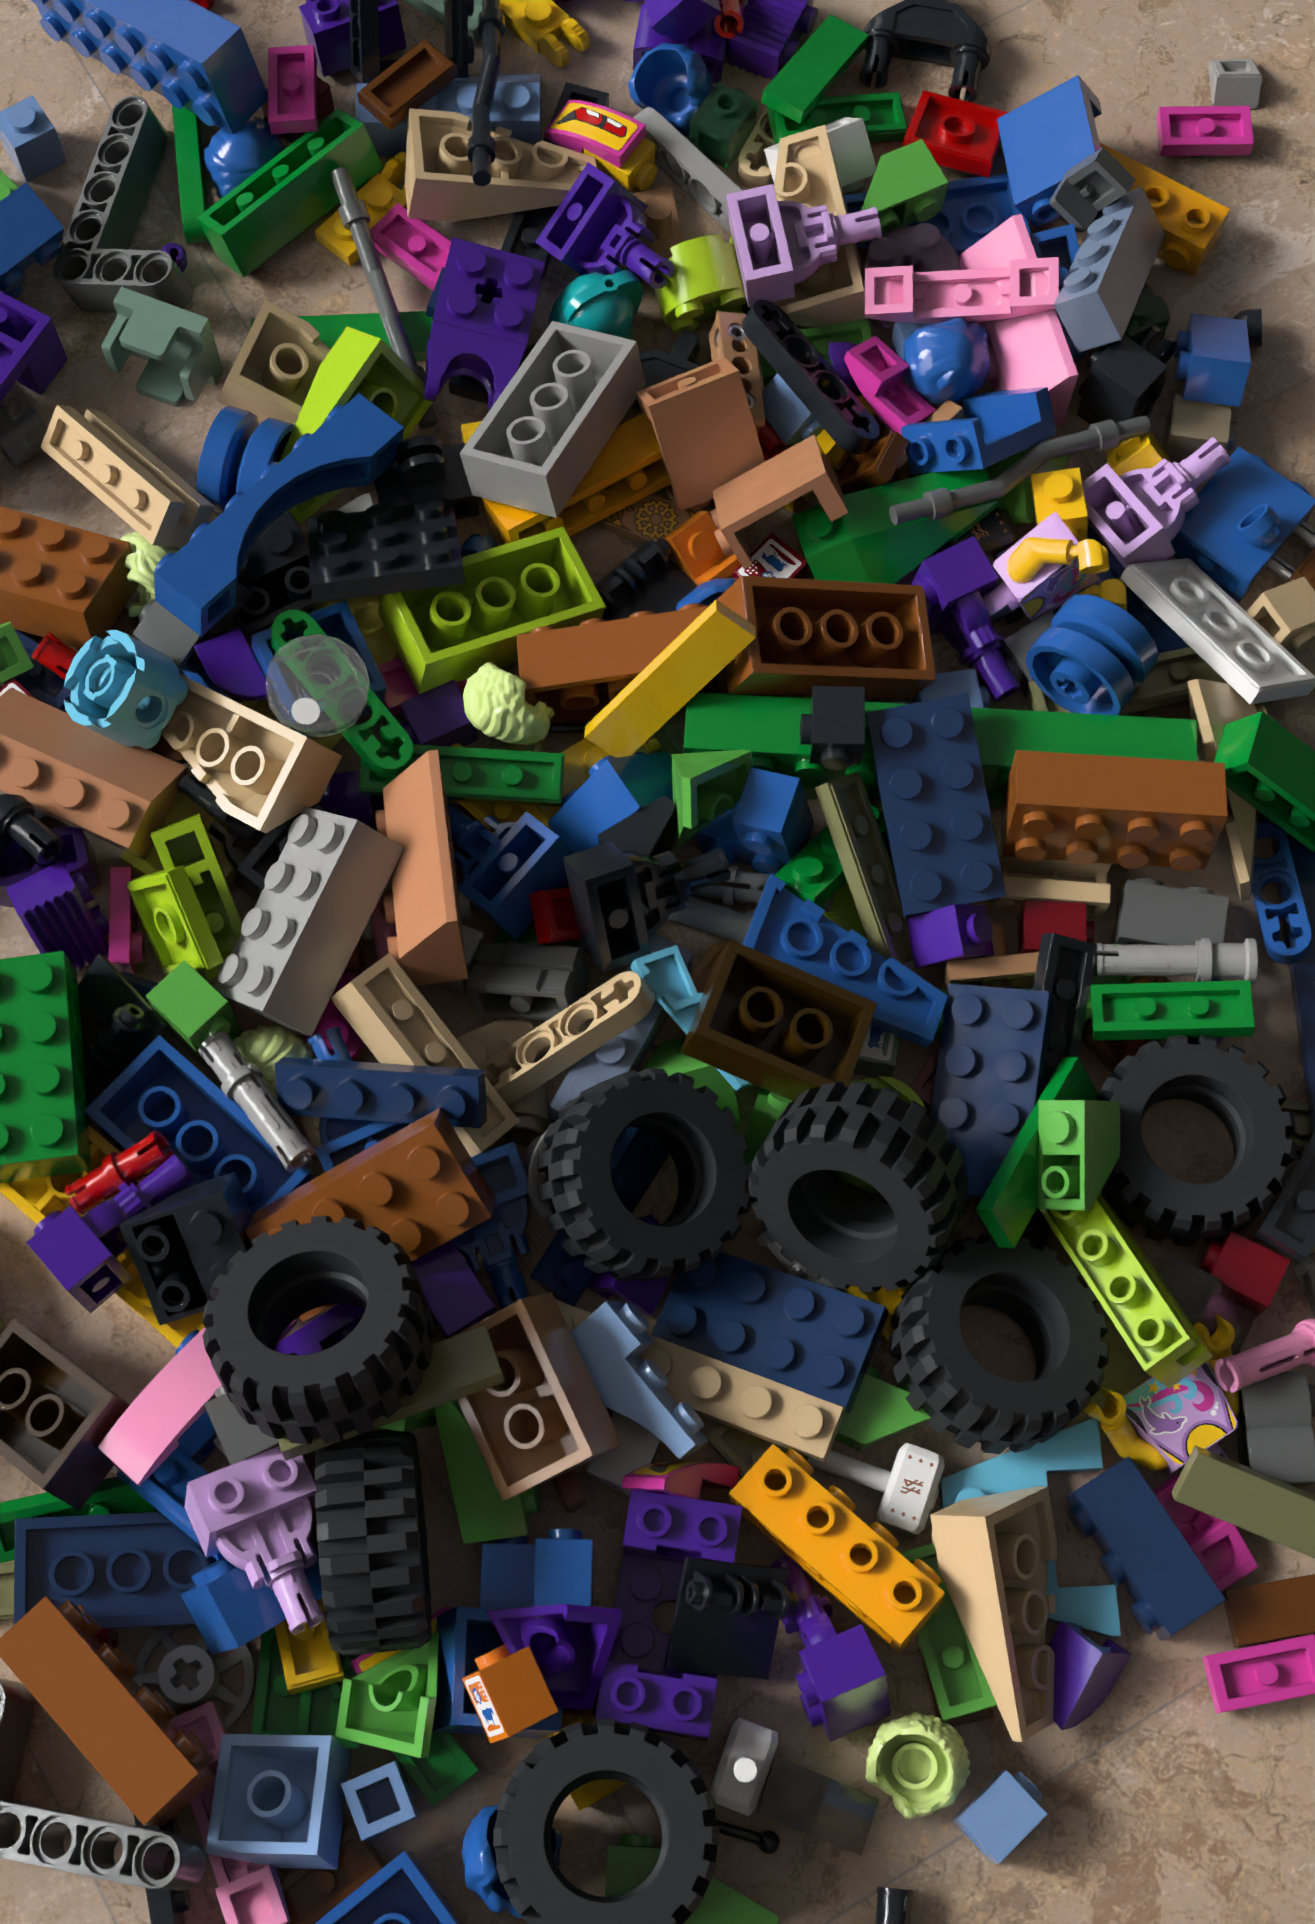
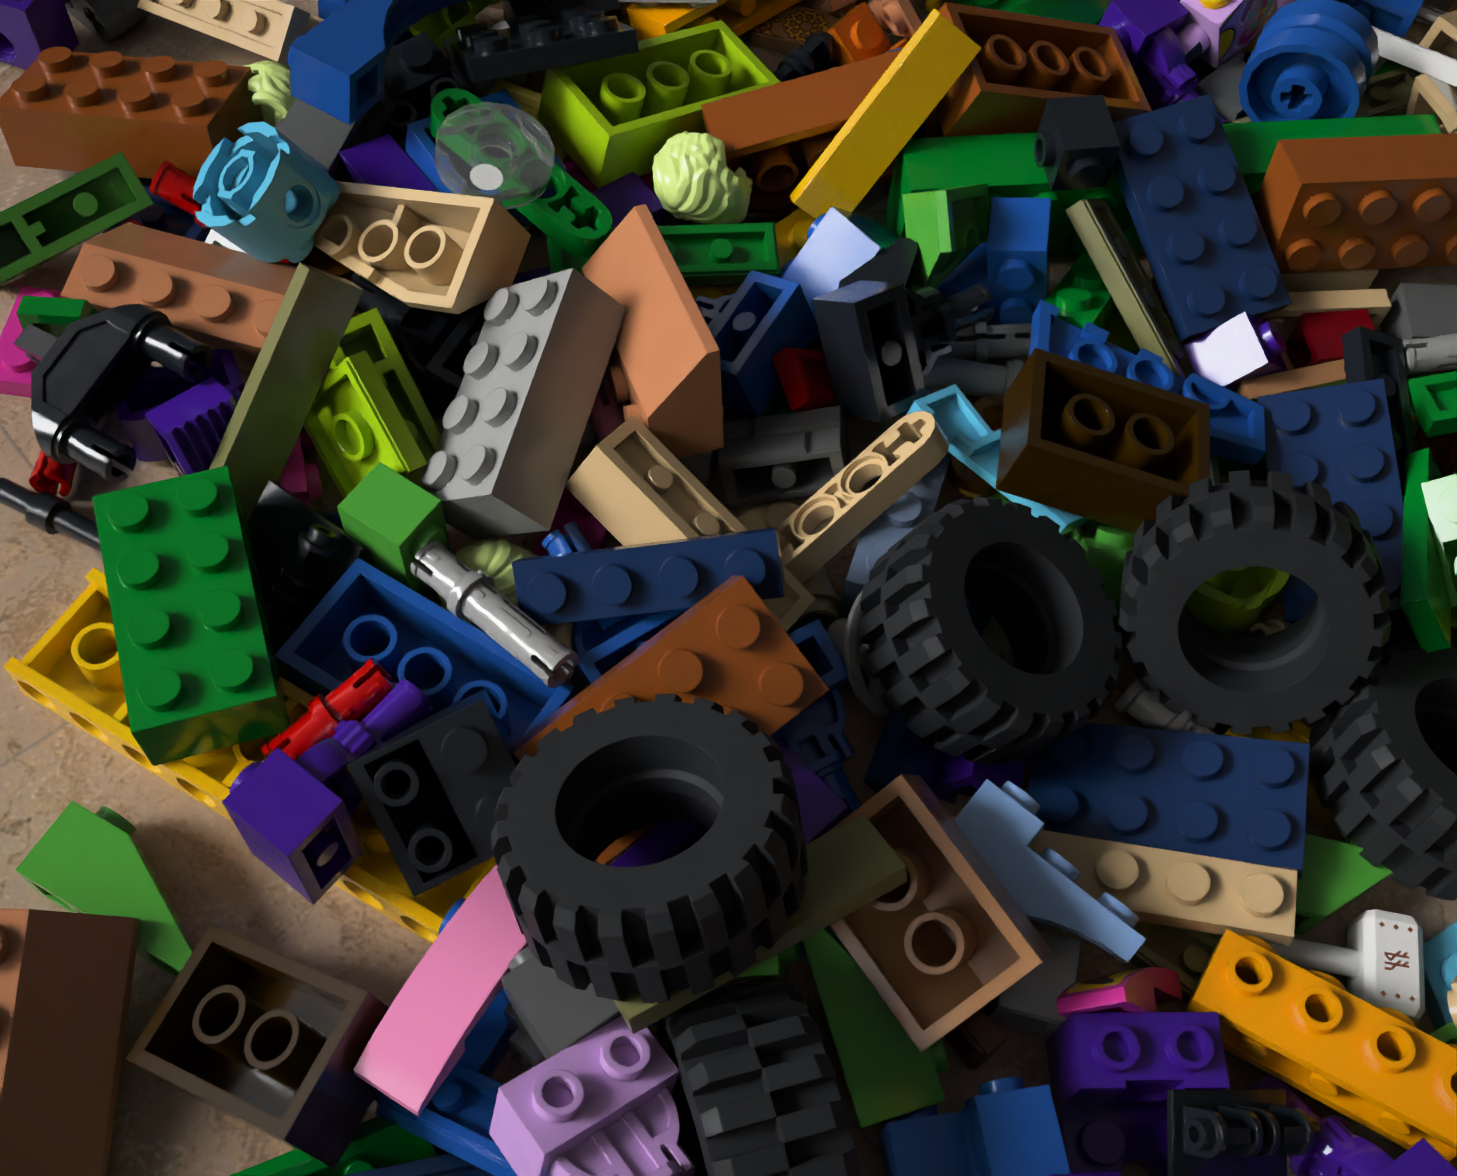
camera: 15 degrees left, 10 degrees down
(117, 880) = (285, 380): none -> olive tile

